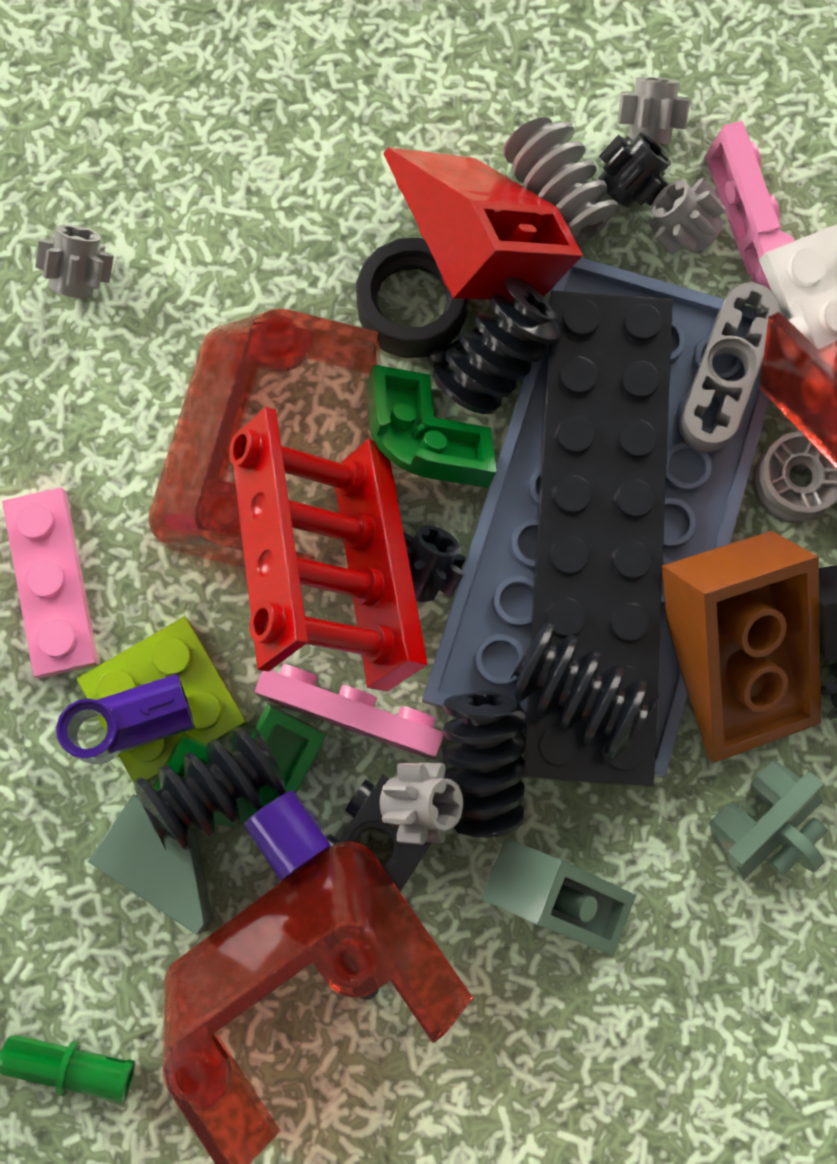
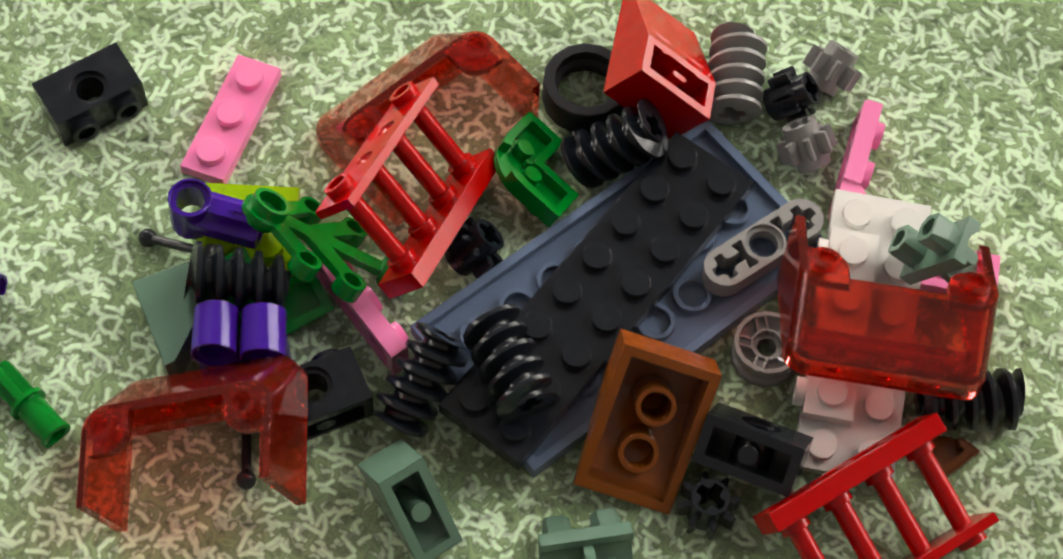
camera: 30 degrees right, 15 degrees down
(146, 764) = (149, 237): none -> black hinge
(195, 690) = (330, 241): none -> green plant
(233, 870) = (215, 334): none -> dark purple piece
(421, 803) = (359, 366): light grey gear -> none

